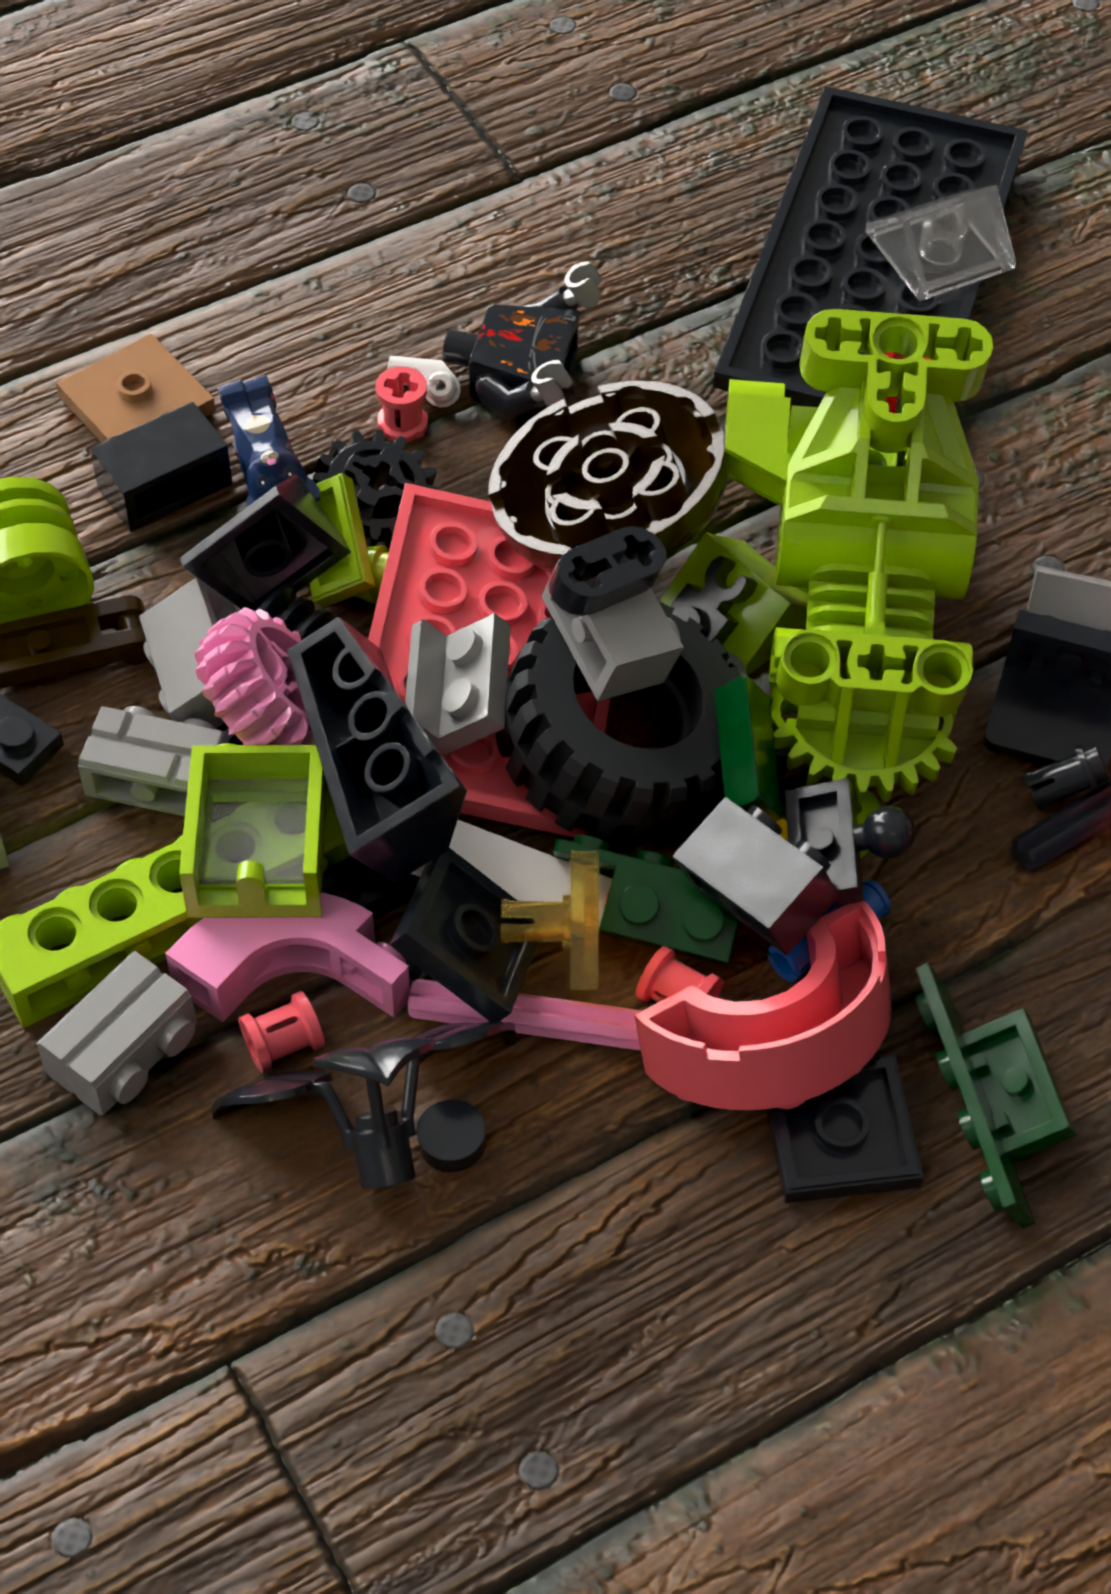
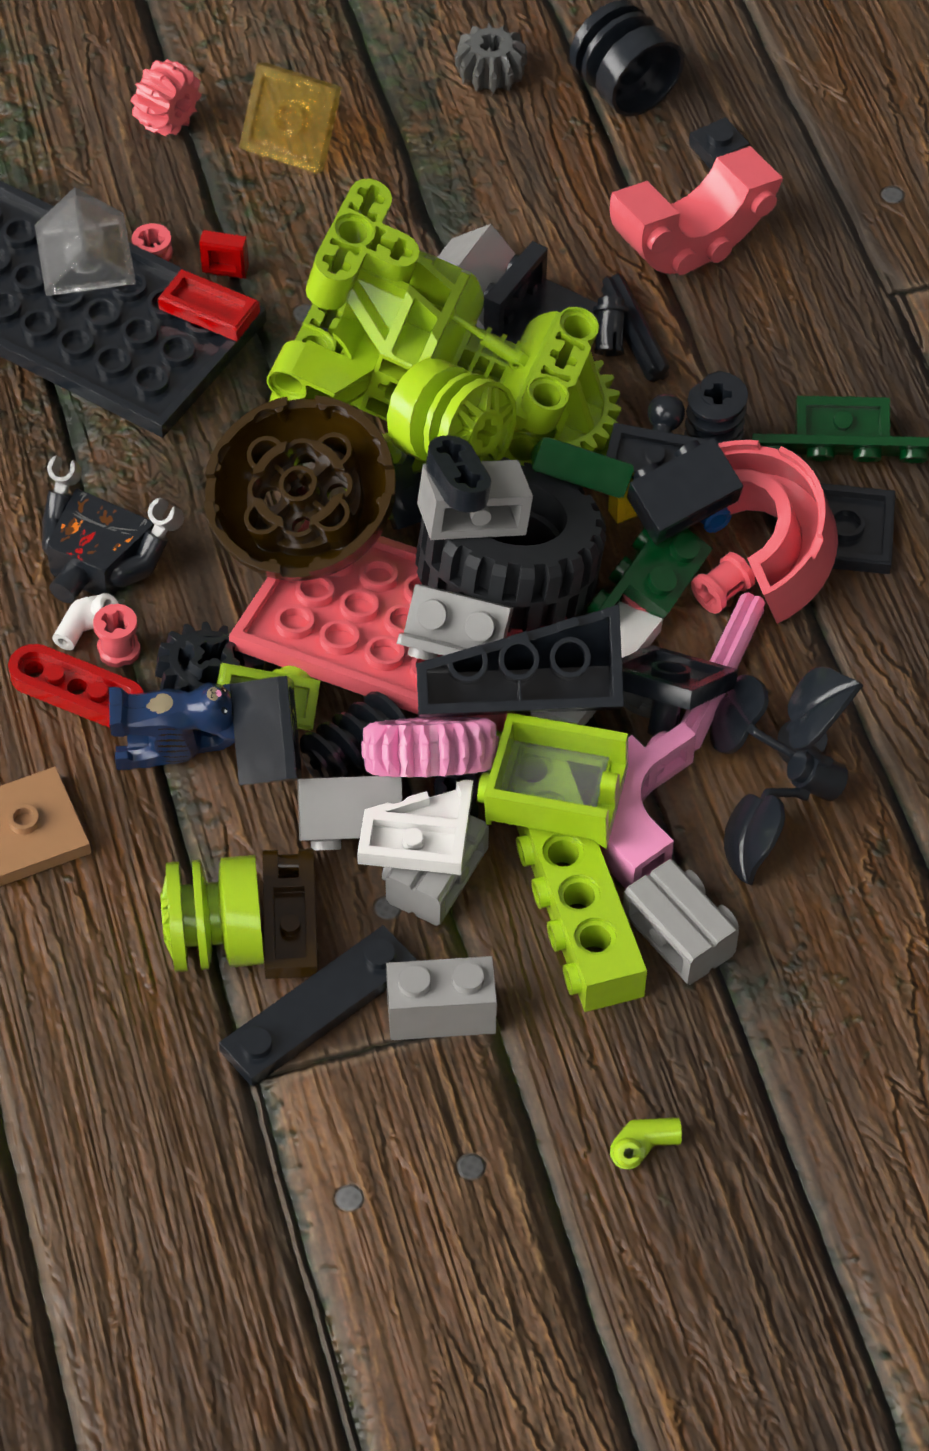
camera: 75 degrees left, 0 degrees up
(152, 710) = (418, 832): none -> white wing
(161, 466) = (123, 812): black brick -> none
(281, 1032) = (702, 821): coral bush -> none
(331, 371) = (63, 675): none -> red plate
(567, 921) = (683, 606): clear yellow tile -> none
(737, 572) = (448, 400): none -> lime wheel
(927, 911) = (717, 408): none -> black piece
(1004, 299) = (154, 234): none -> coral bush
(1006, 371) = (224, 254): none -> red tile

